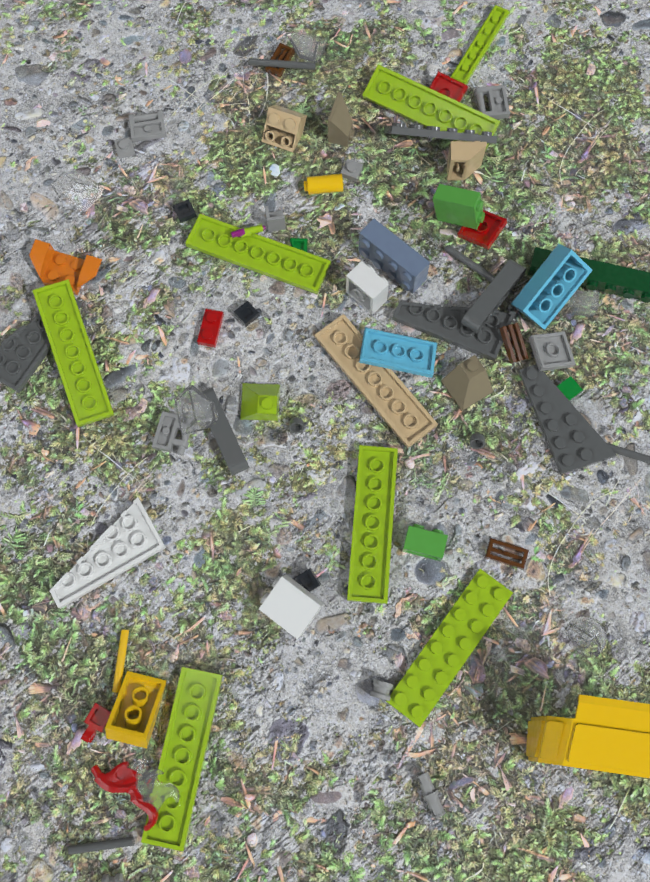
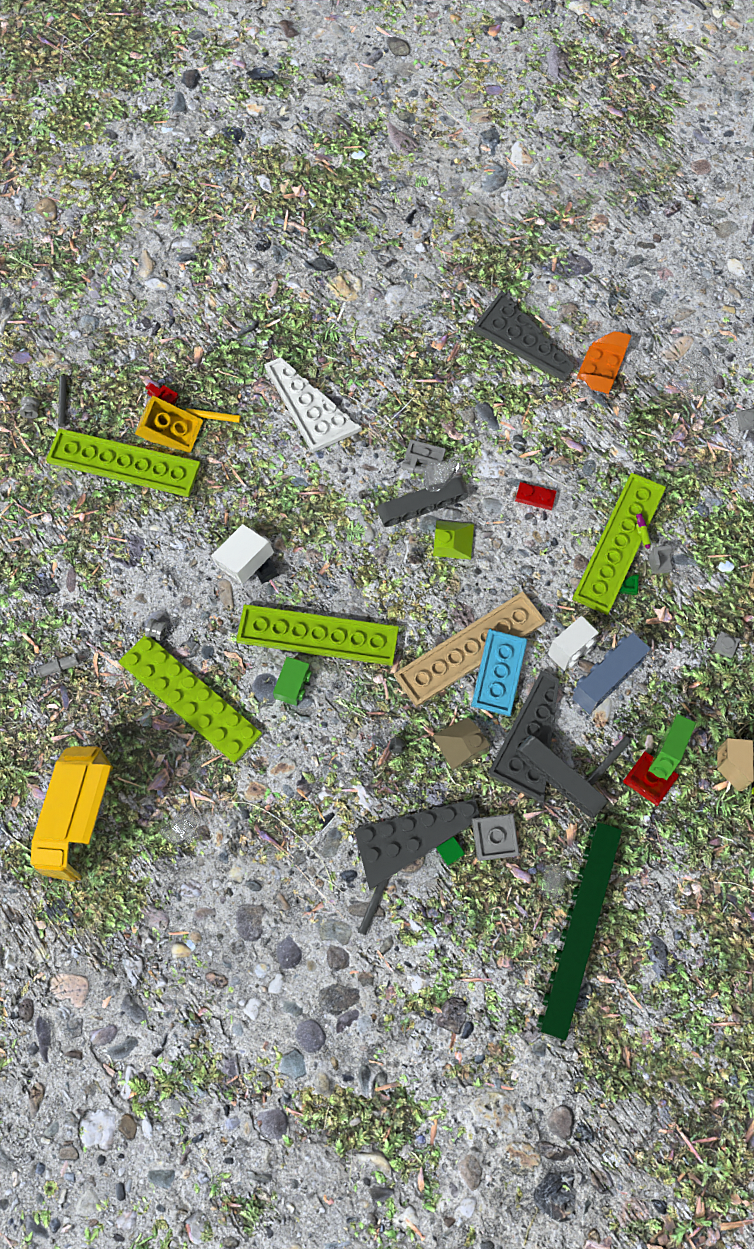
camera: 90 degrees right, 5 degrees down
(73, 353) = (510, 371): lime plate -> none
(140, 783) = (105, 427): piece -> none
(184, 211) = (670, 473): black plate -> none
(246, 313) = (549, 529): black plate -> none
(296, 429) = (425, 570): dark grey hinge -> none
(324, 184) = (705, 612): yellow brick -> none
(505, 561) = (281, 767): reddish brown tile -> none
(516, 342) = (488, 799): reddish brown tile -> none
(552, 286) = (569, 839): medium azure slope -> none

